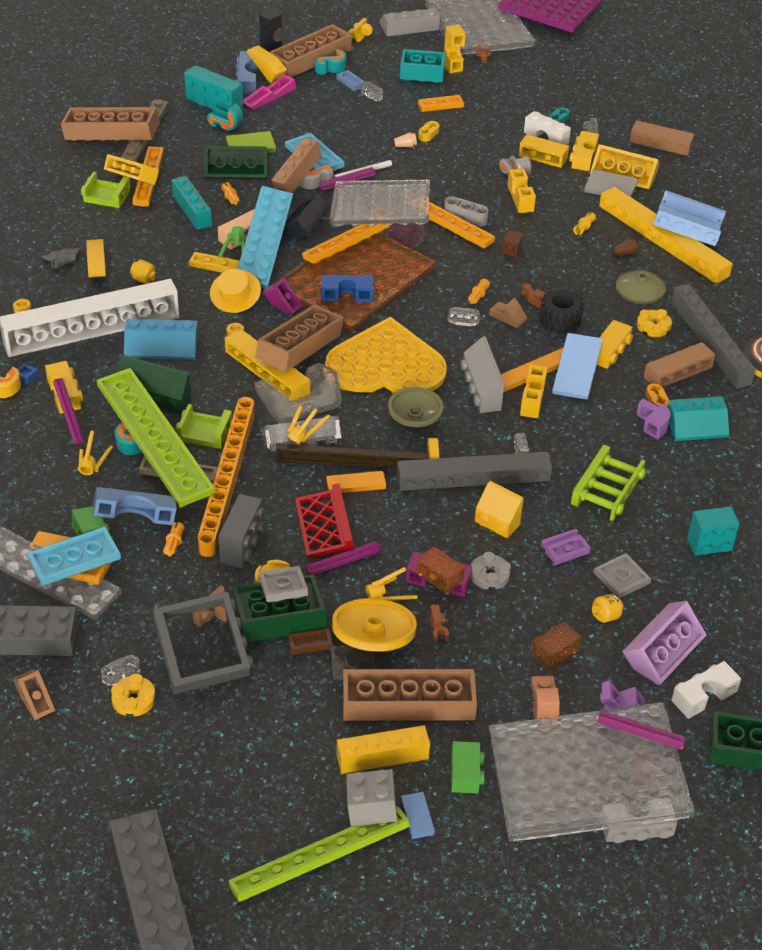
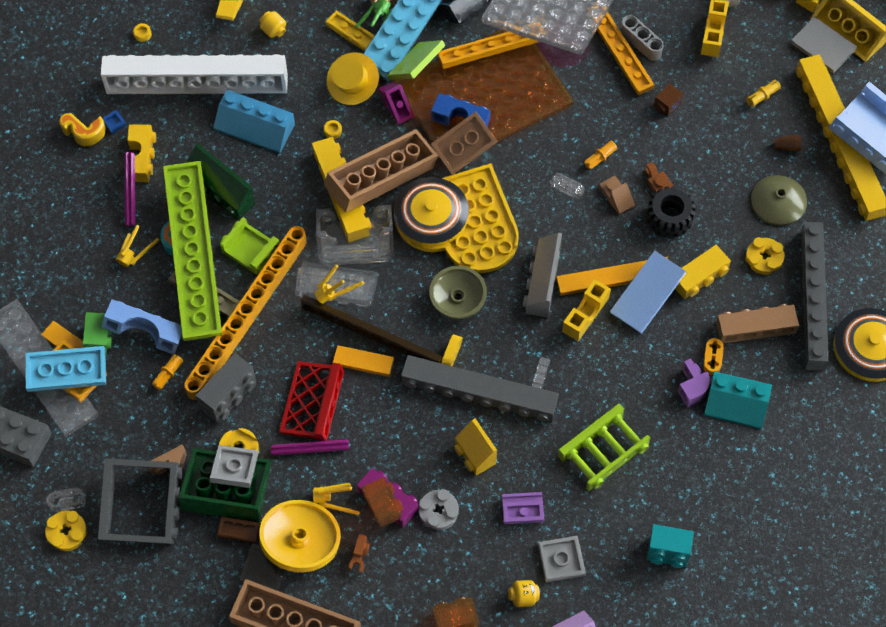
camera: 25 degrees right, 20 degrees up
(286, 263) = (416, 60): none -> lime tile
(359, 359) = (431, 211): none -> dish
(362, 302) = (464, 143): none -> medium nougat plate

